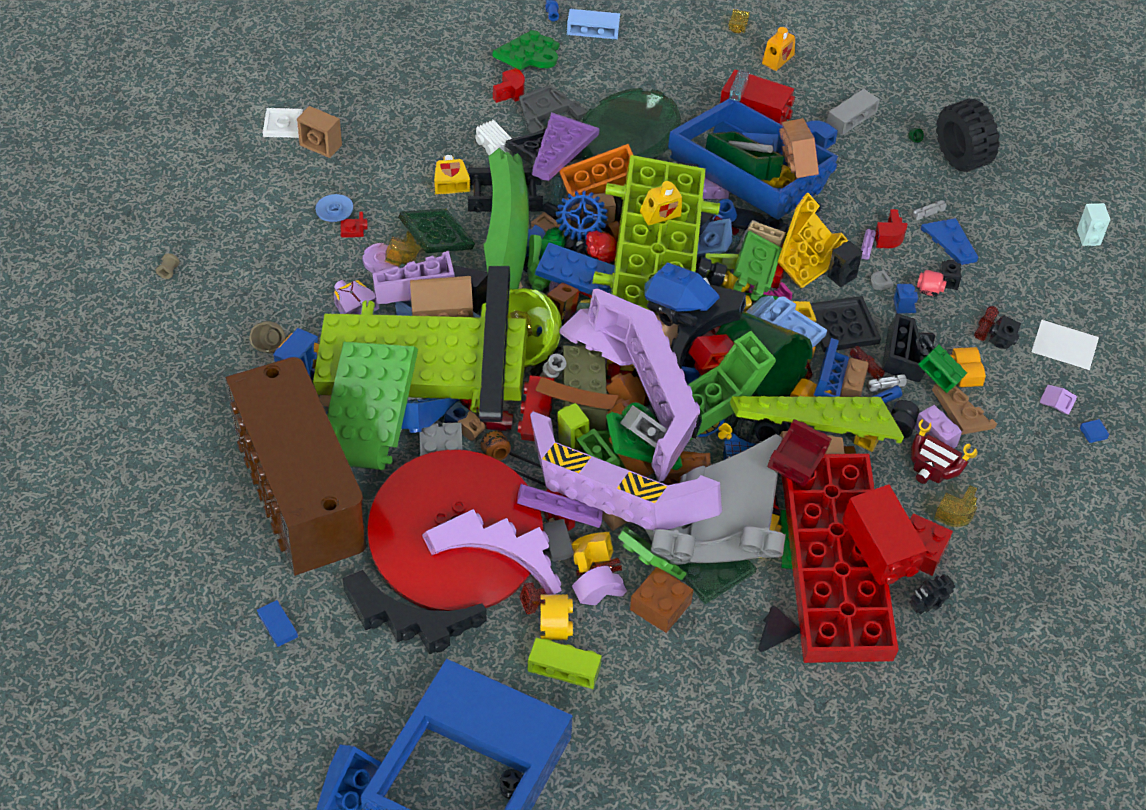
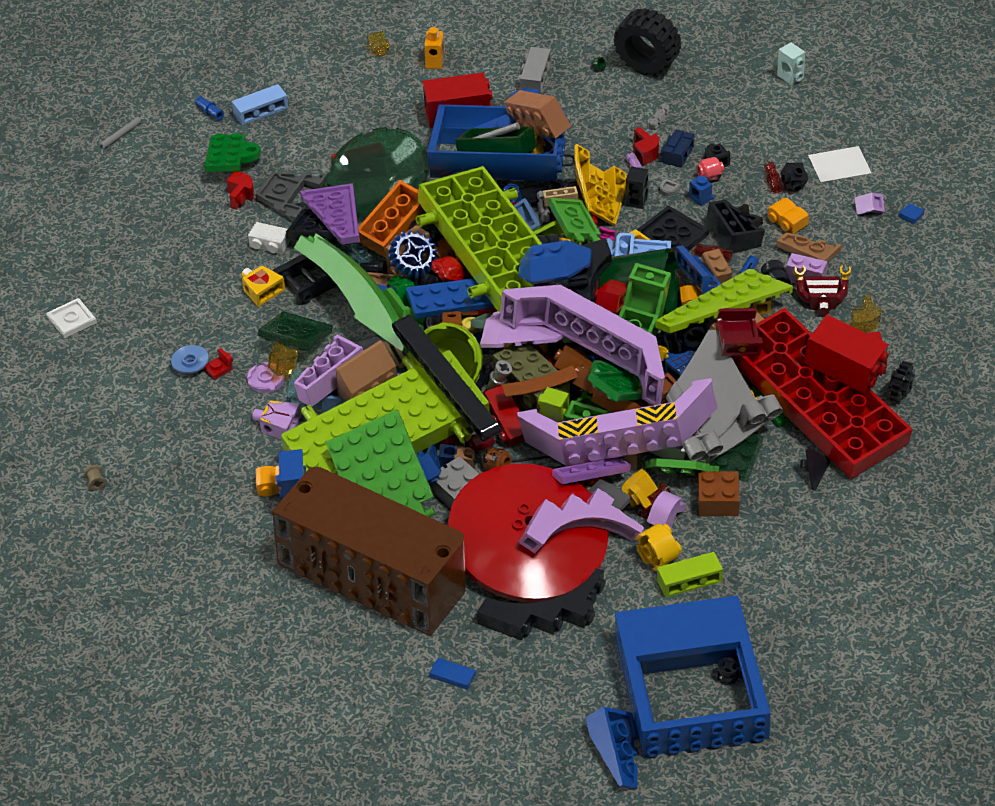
camera: 30 degrees left, 5 degrees down
(267, 336) = (239, 482): dark tan hair -> none
(319, 131) = (119, 306): medium nougat brick -> none
(531, 597) = (624, 547): clear red tile -> none
(643, 426) = (624, 370): light grey brick -> none
(662, 204) = (481, 207): yellow torso -> none
(739, 85) = (440, 90): clear light blue piece -> none
(887, 382) = (740, 258): light grey axle -> none
(919, 248) = (678, 148): none -> dark blue brick
(942, 368) = (776, 224): green brick -> none
(952, 239) = (703, 131): blue wing -> none

